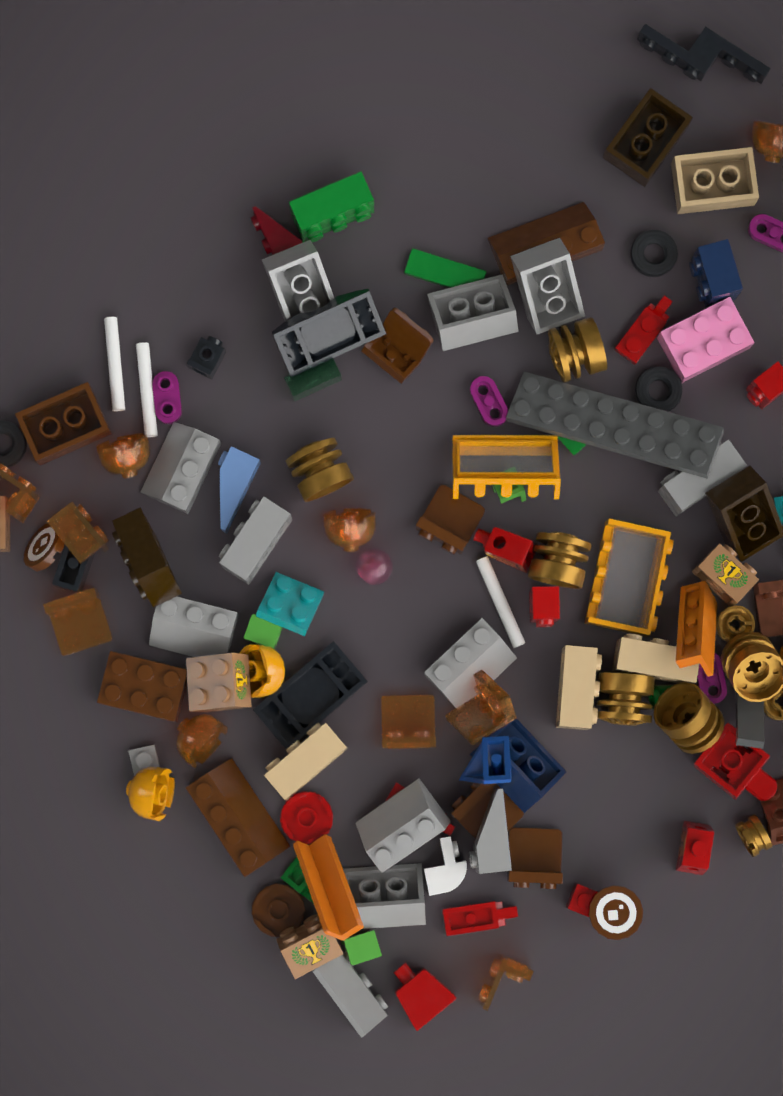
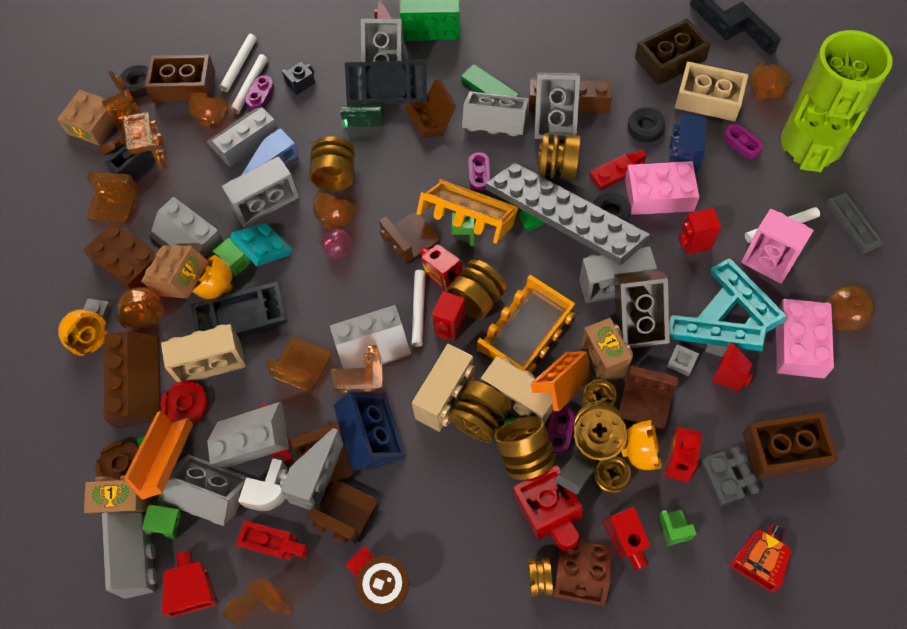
camera: 30 degrees right, 20 degrees down
(145, 558) = (175, 168): dark brown brick -> none
(490, 762) = (343, 409): blue slope -> none
(695, 848) = (481, 566): red torso -> none

